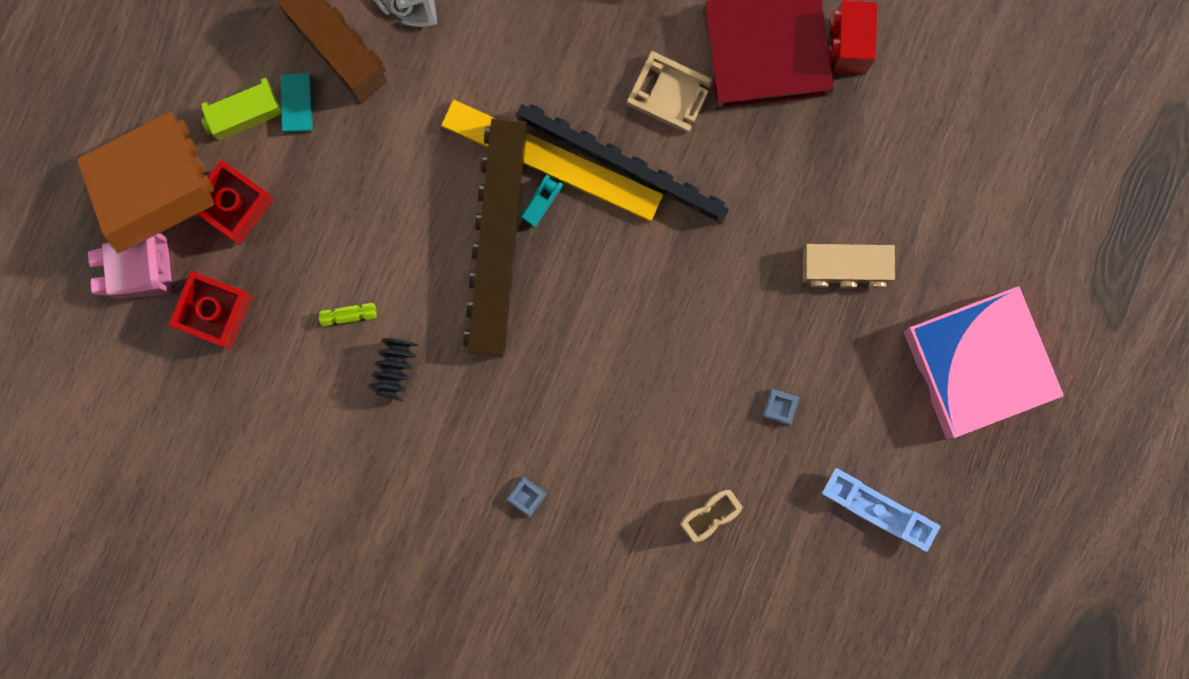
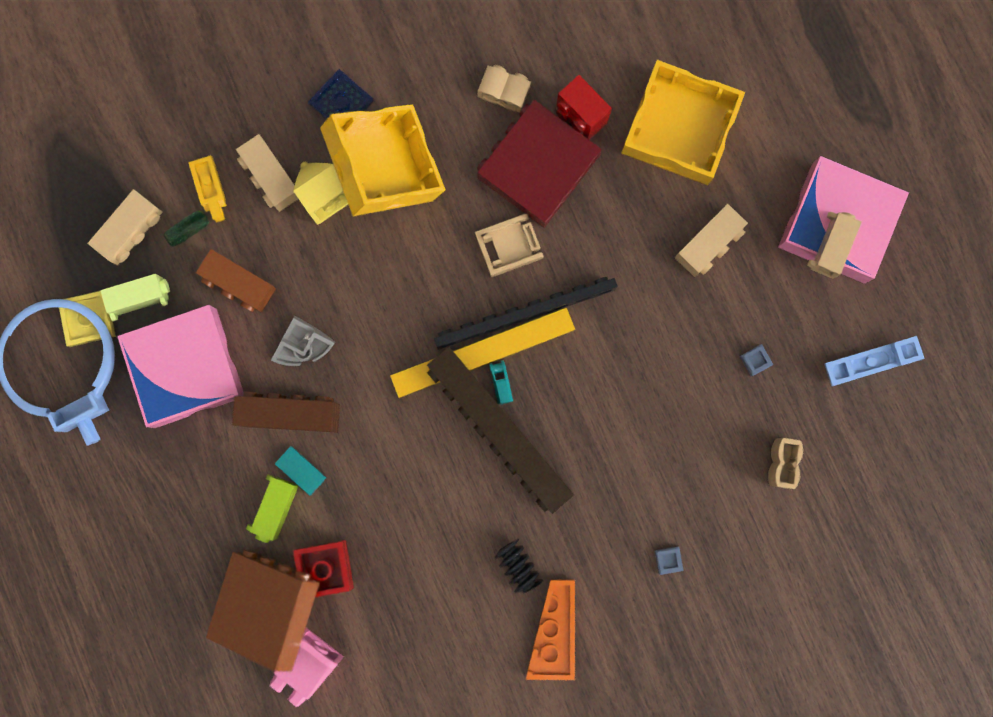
camera: 40 degrees left, 0 degrees up
(210, 310) = (378, 644): red brick -> none
(347, 314) = (458, 563): lime axle -> none
(359, 463) = (555, 639): none -> orange wing
(930, 138) = (683, 123): none -> yellow tile
(949, 371) = (836, 244): none -> tan brick

